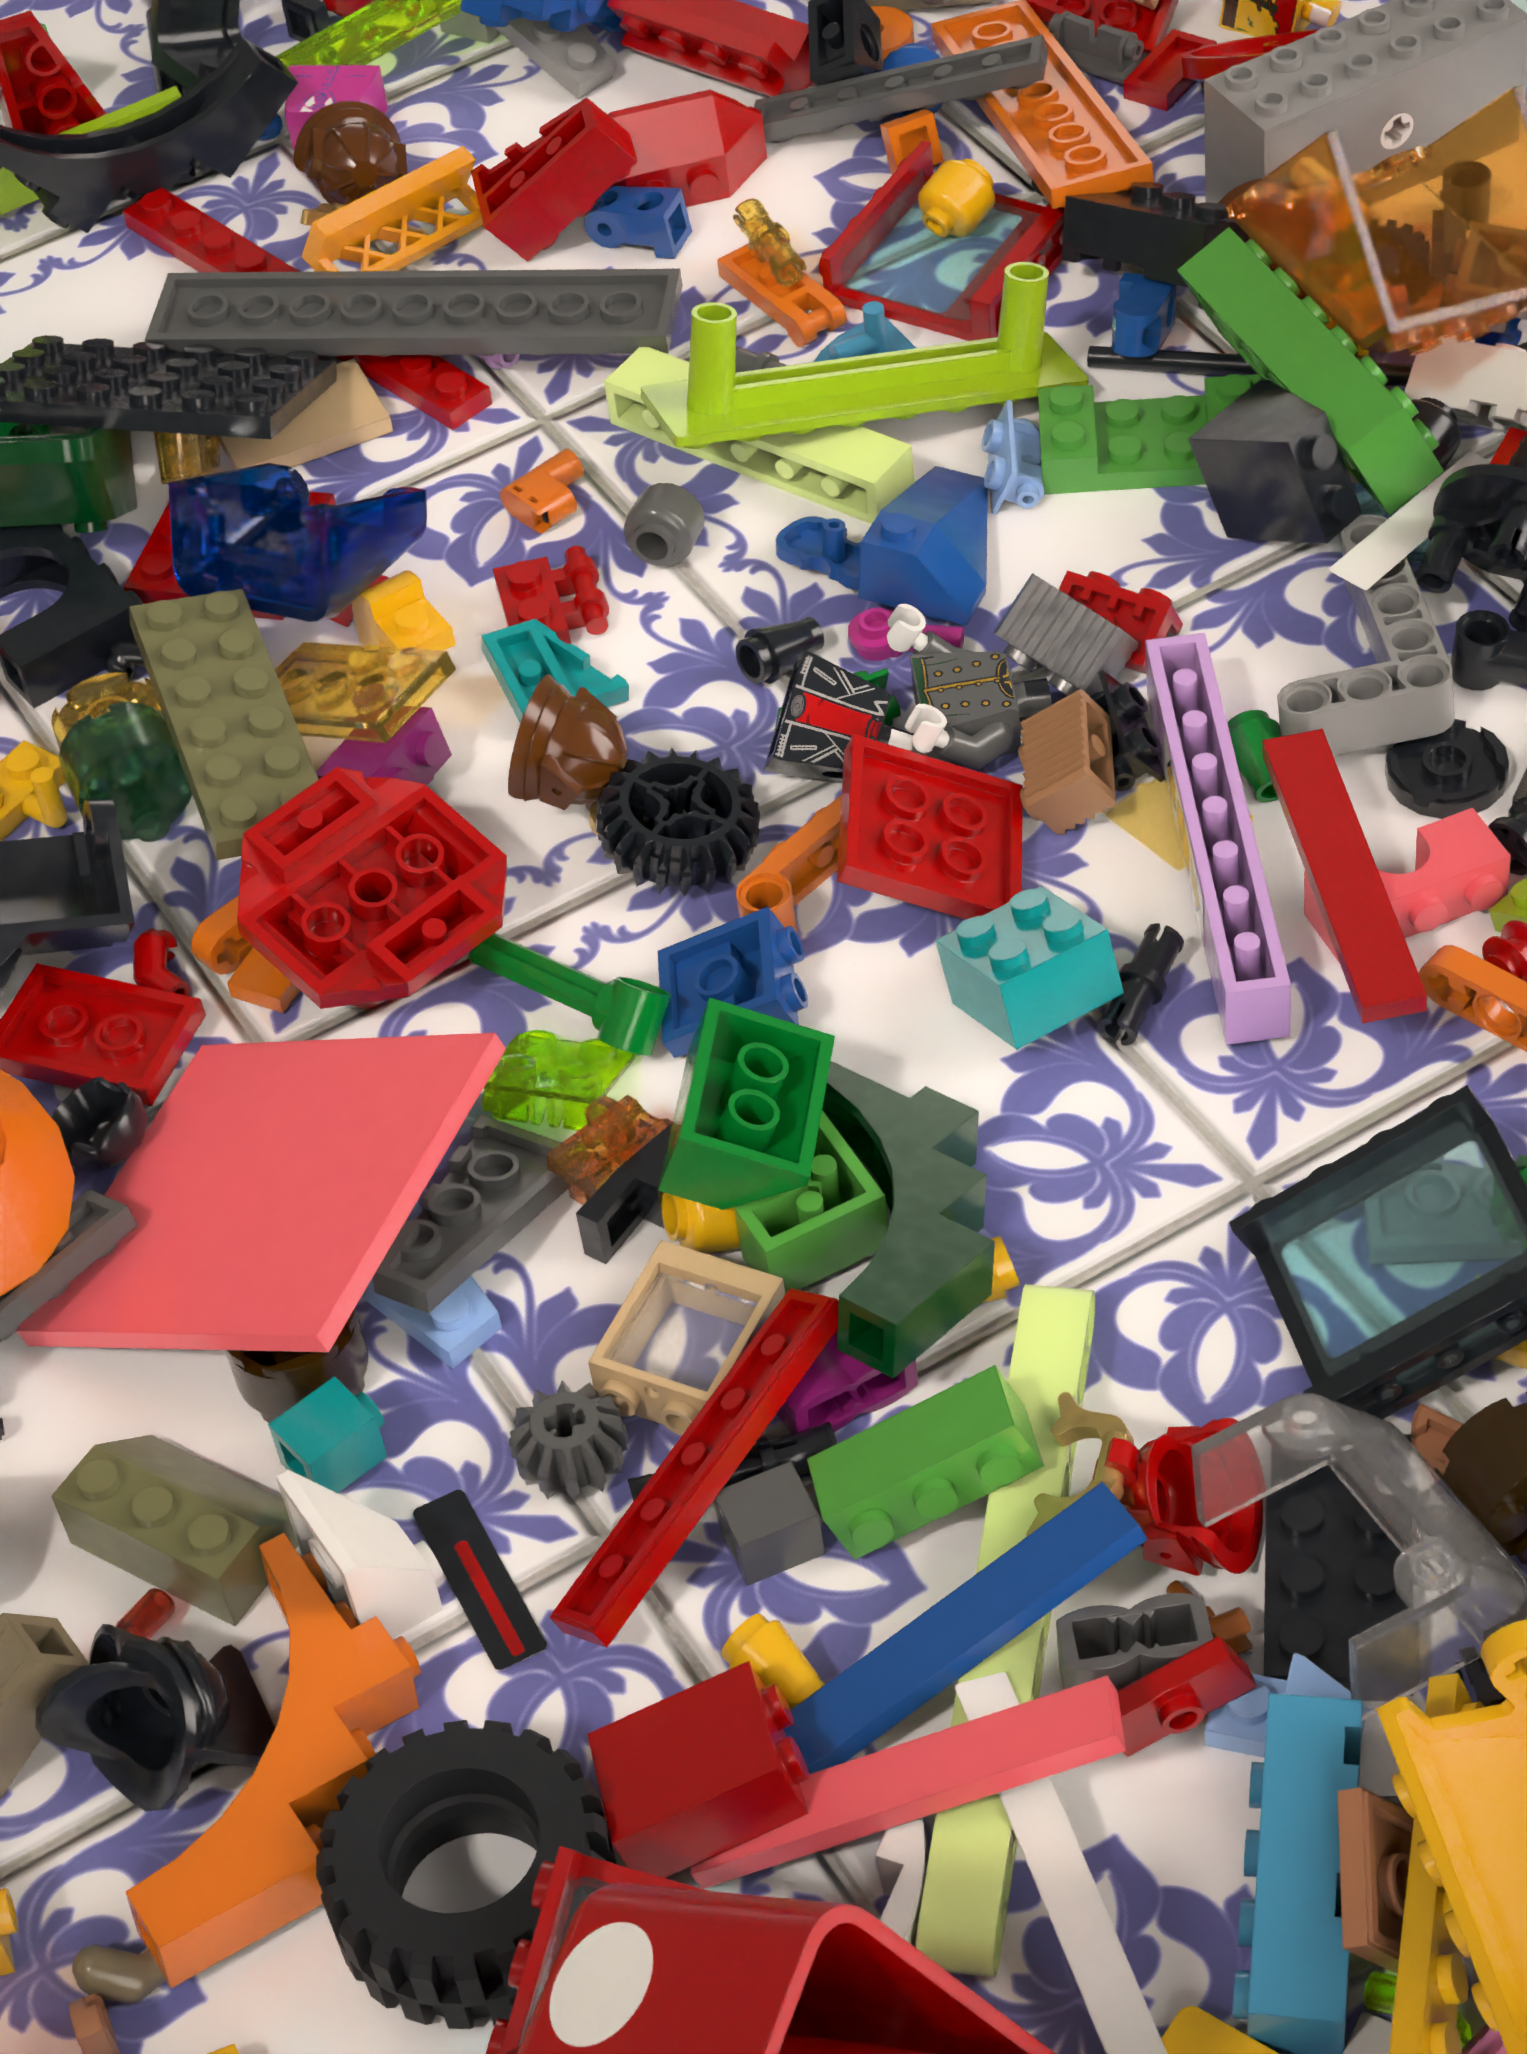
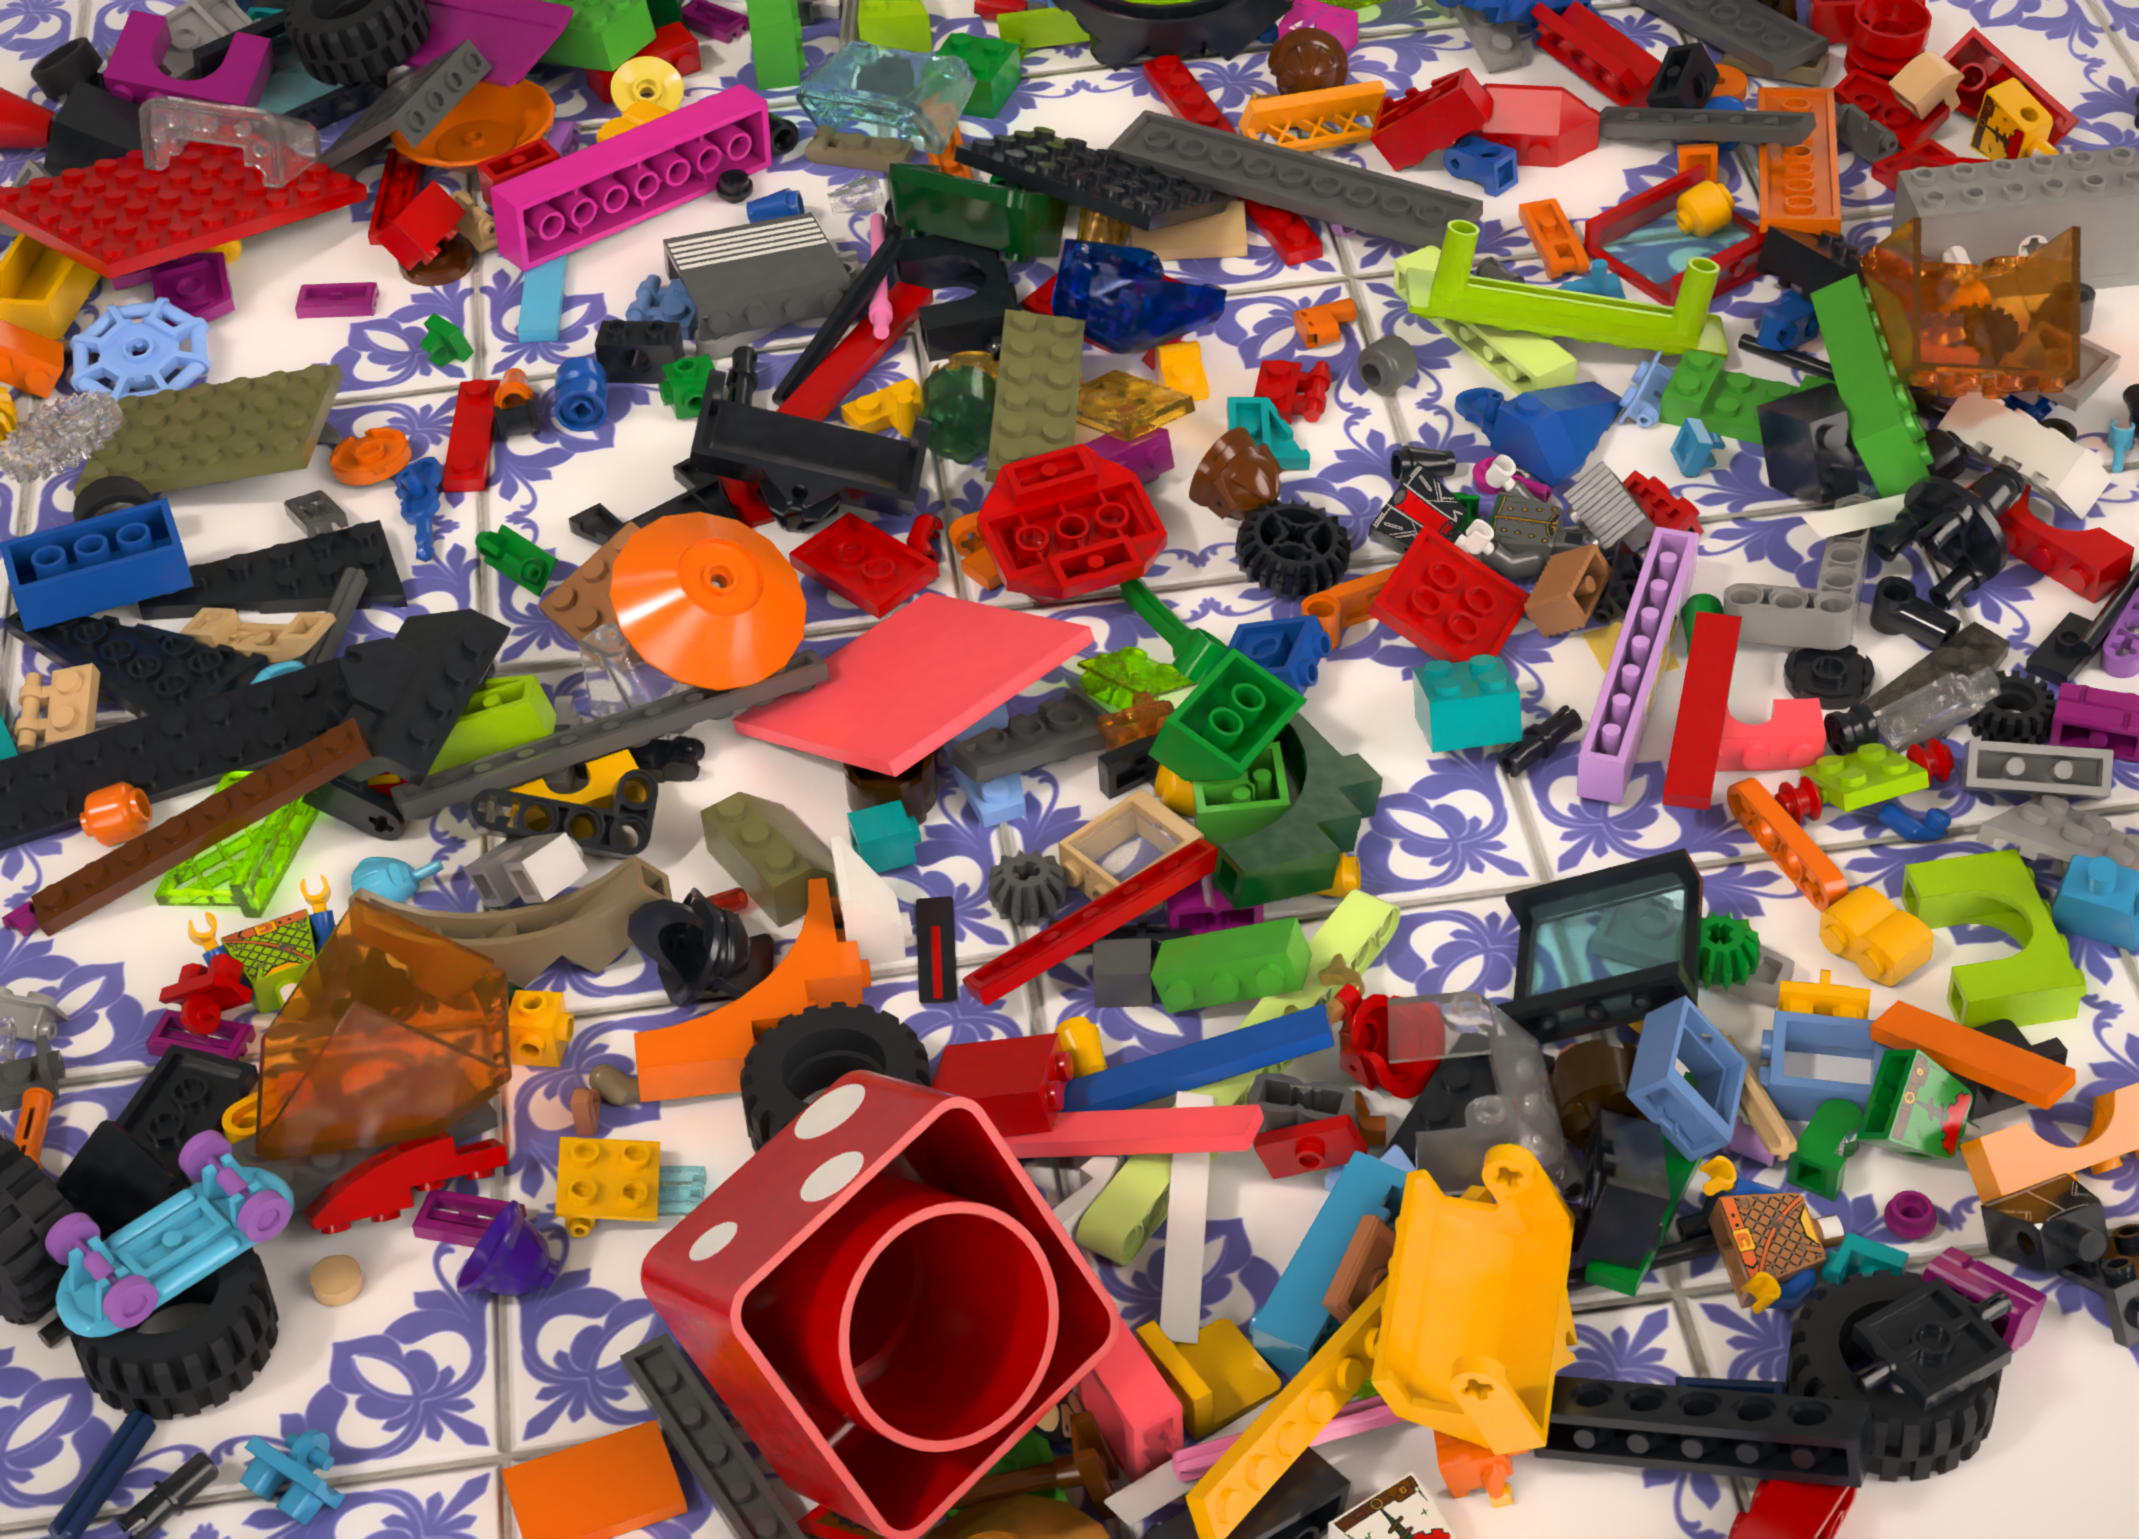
camera: 20 degrees right, 5 degrees down
(100, 1124) = (838, 617): black hair -> none
(769, 242) = (1556, 201): clear yellow pin -> none
(1114, 516) = (1693, 447): none -> dark azure tile

